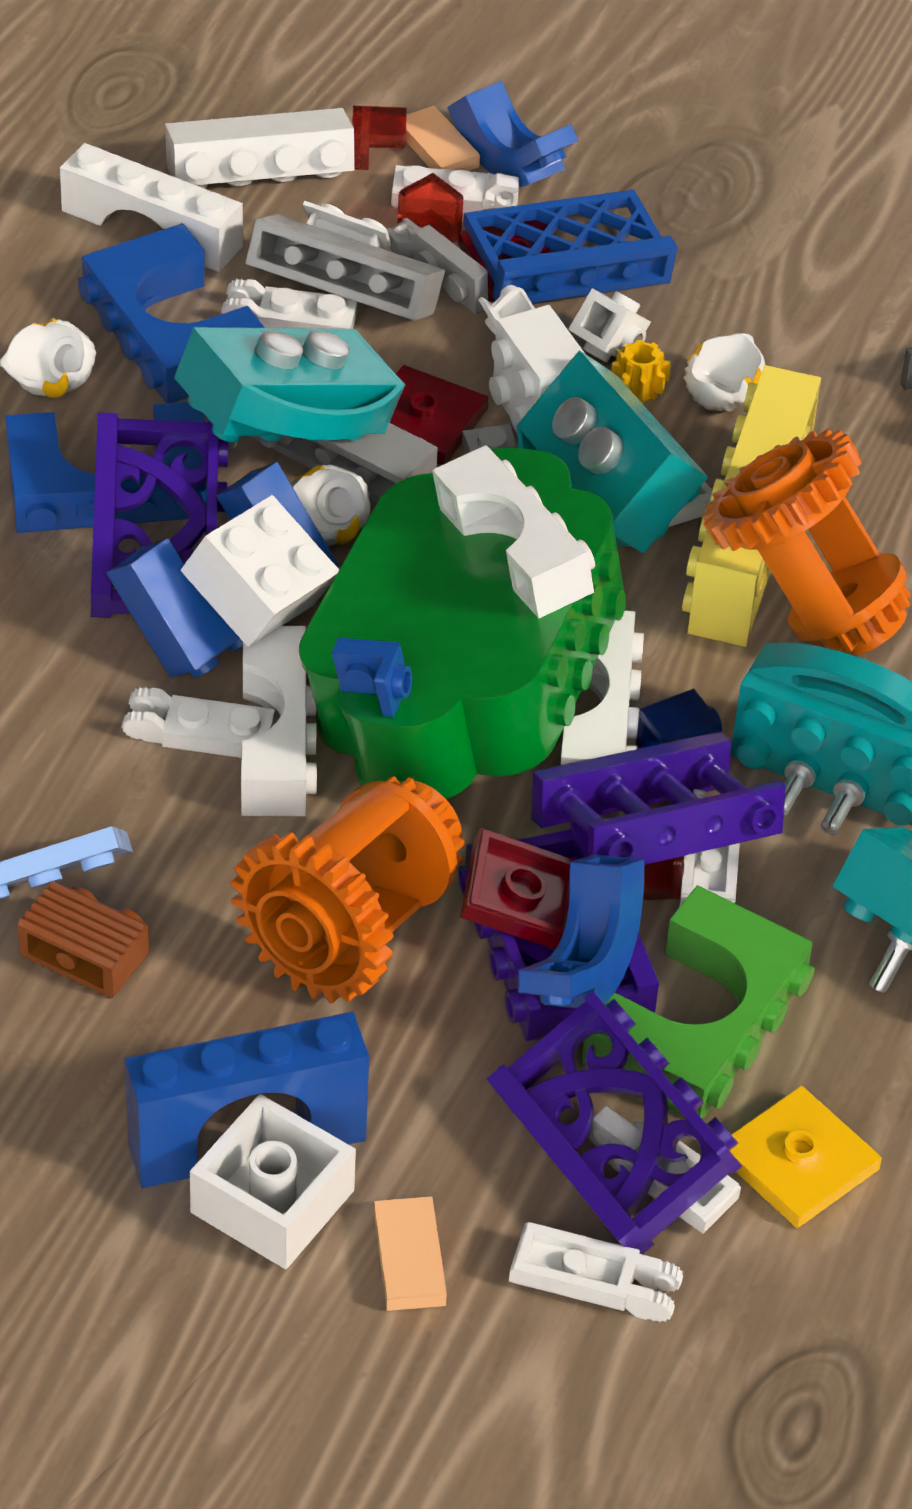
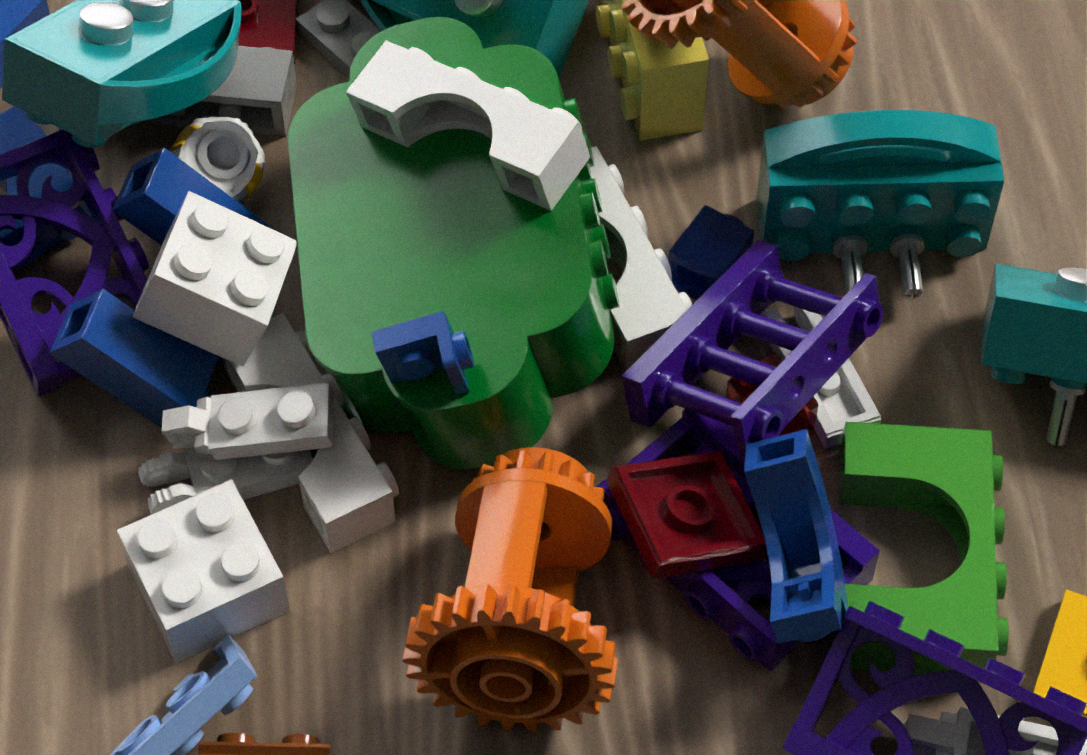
camera: 25 degrees left, 10 degrees up
(133, 776) = (204, 570): none -> white brick
(232, 689) = (255, 422): none -> white hinge

